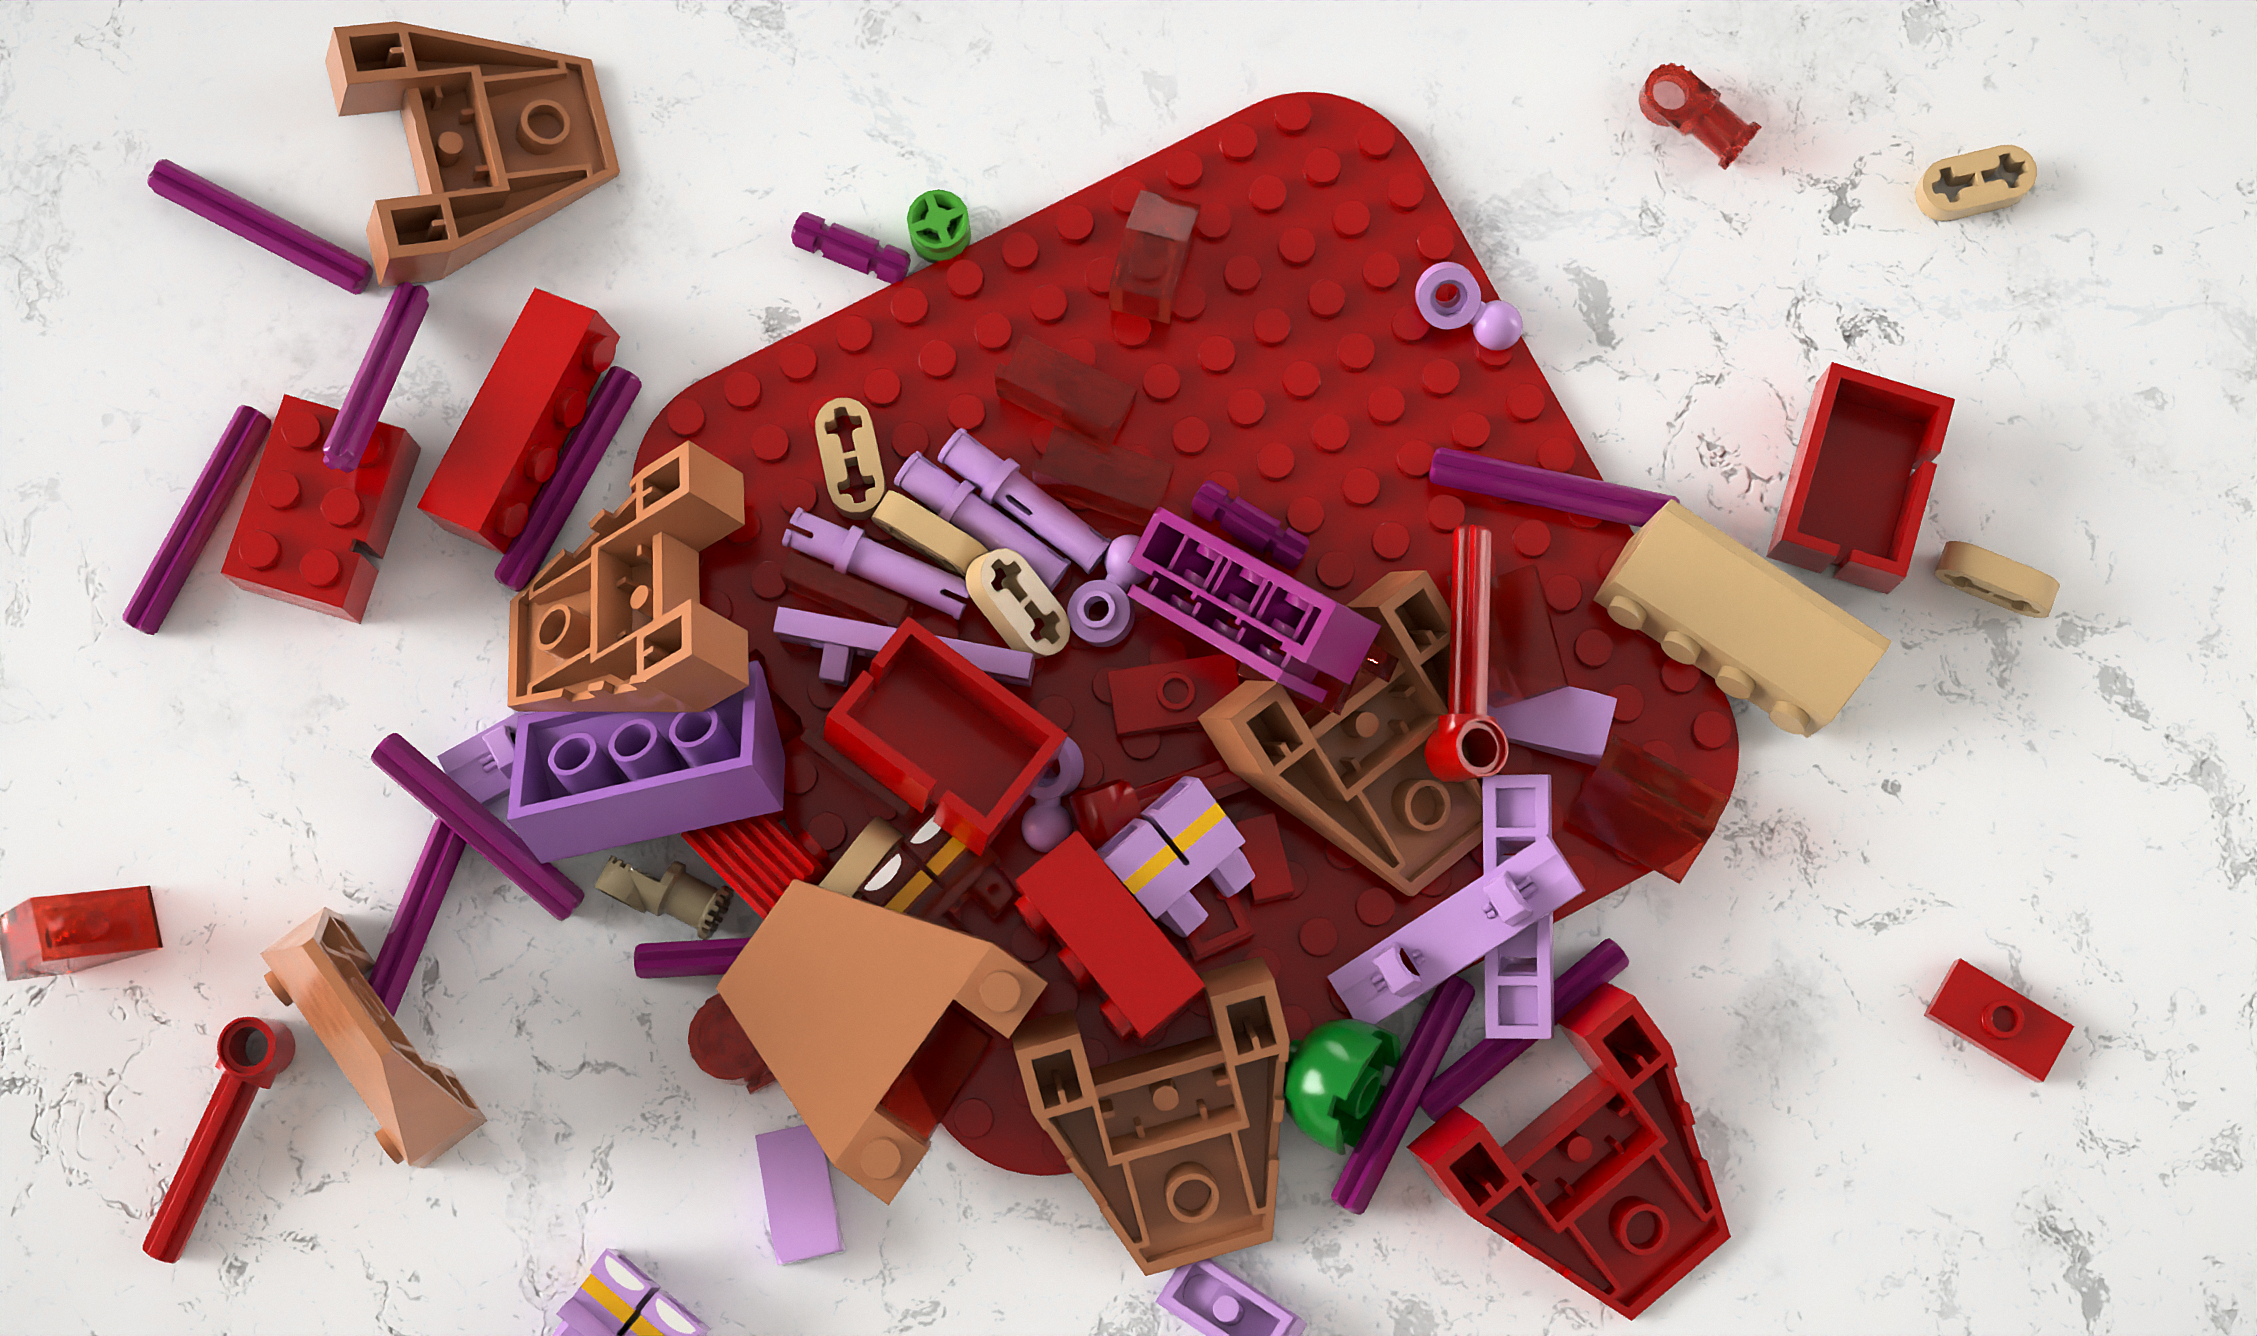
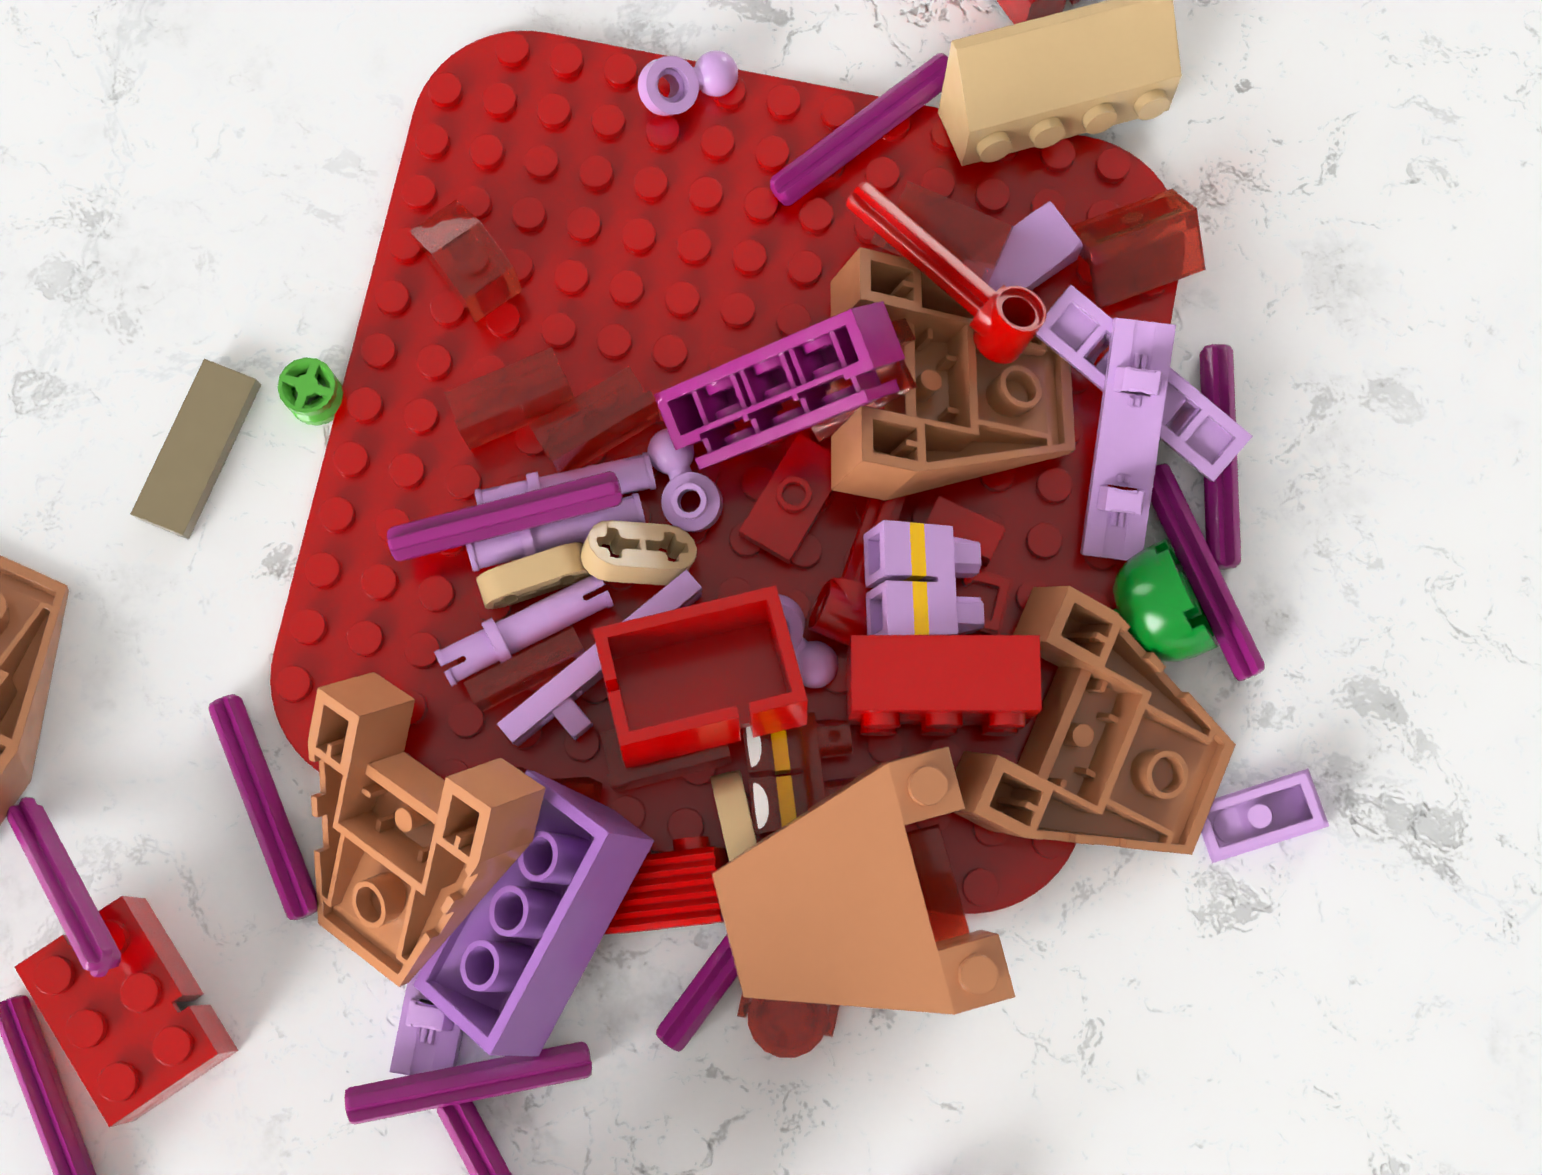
camera: 50 degrees left, 0 degrees up
(520, 421) = (190, 806): red brick -> none
(674, 894) = (644, 972): dark tan connector -> none
(798, 1195) = (936, 1059): lavender slope -> none
(816, 176) = (196, 449): none -> dark tan tile
(836, 461) = (421, 600): tan beam -> none
(850, 248) = (271, 466): magenta axle -> none
(956, 470) = (504, 516): none -> magenta axle
(1250, 525) = (713, 349): magenta axle -> none
(1601, 1179) = (1364, 481): red wedge -> none
(1999, 1020) = (1459, 144): red plate -> none

